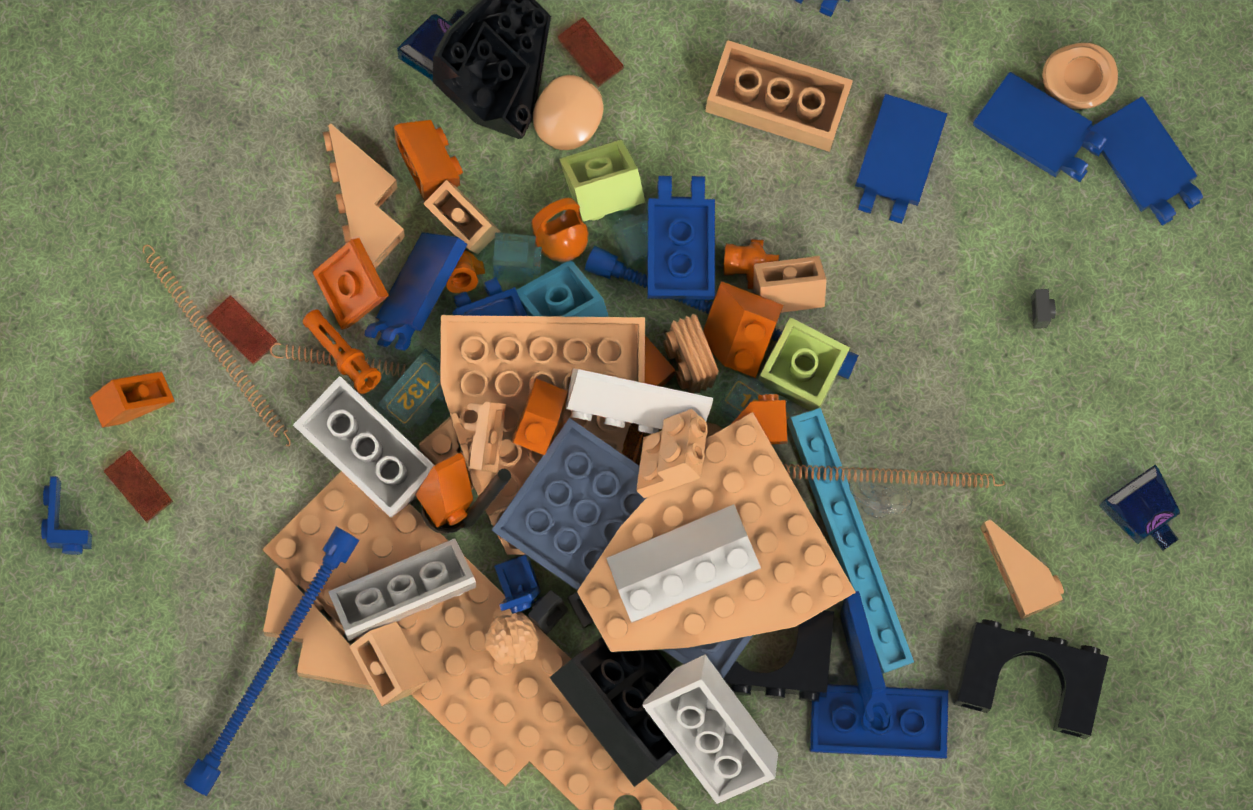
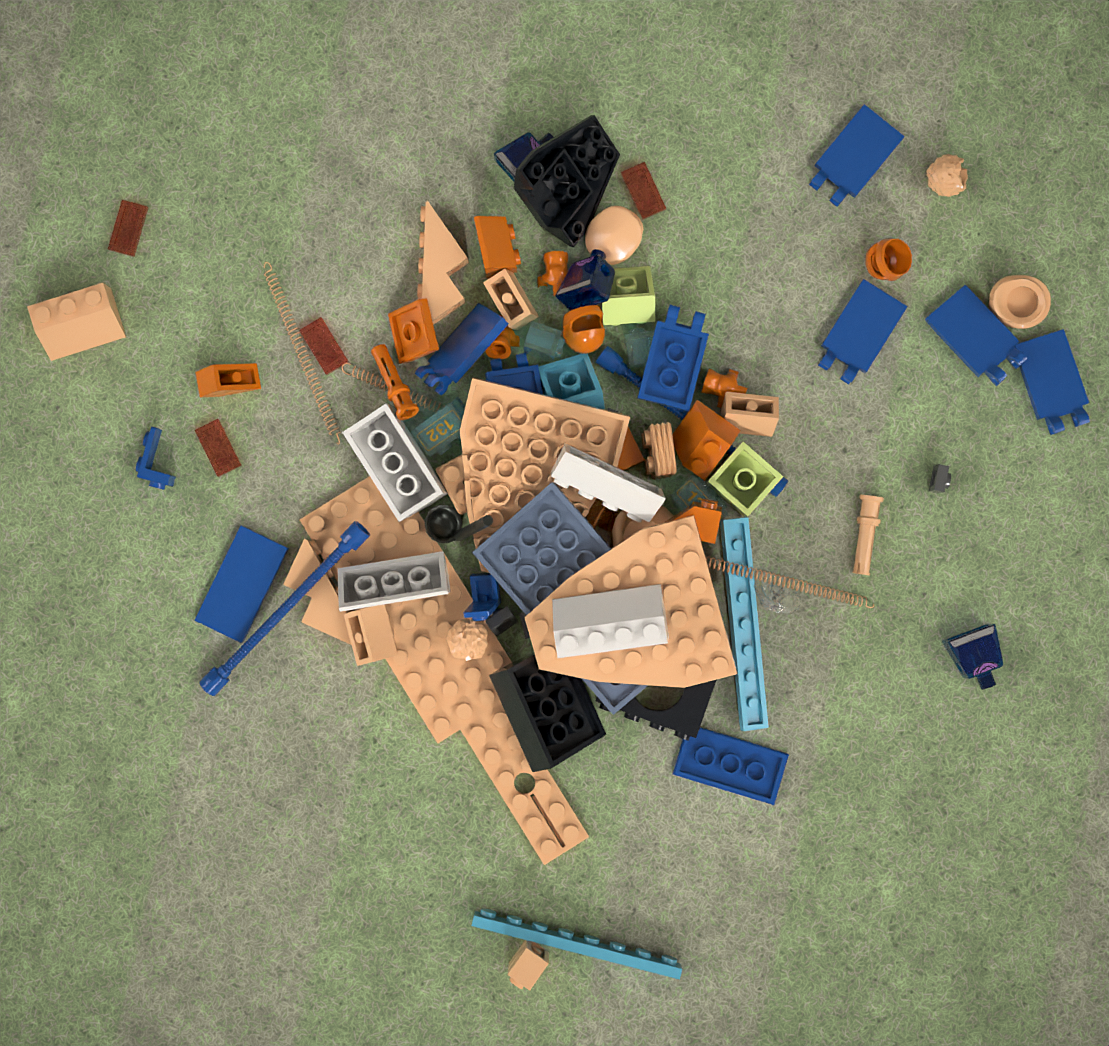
camera: 20 degrees right, 10 degrees up
(207, 648) = (241, 584): none -> blue tile
(446, 491) = (445, 514): orange slope -> none
(486, 442) = (483, 486): light nougat plate -> none
(509, 173) = (556, 270): none -> orange piece
(539, 417) = (529, 476): orange slope -> none
(550, 173) = (587, 282): none -> clear blue torso
(673, 454) = (623, 533): light nougat plate -> none
(712, 730) = (601, 746): white slope -> none
(778, 95) = (780, 261): light nougat brick -> none
(865, 661) = (731, 724): blue tile -> none
(911, 59) = (890, 258): none -> orange helmet
(969, 382) = (868, 521): none -> light nougat pin
(1025, 576) = (870, 684): light nougat slope -> none
(1079, 673) = (891, 766): black arch -> none

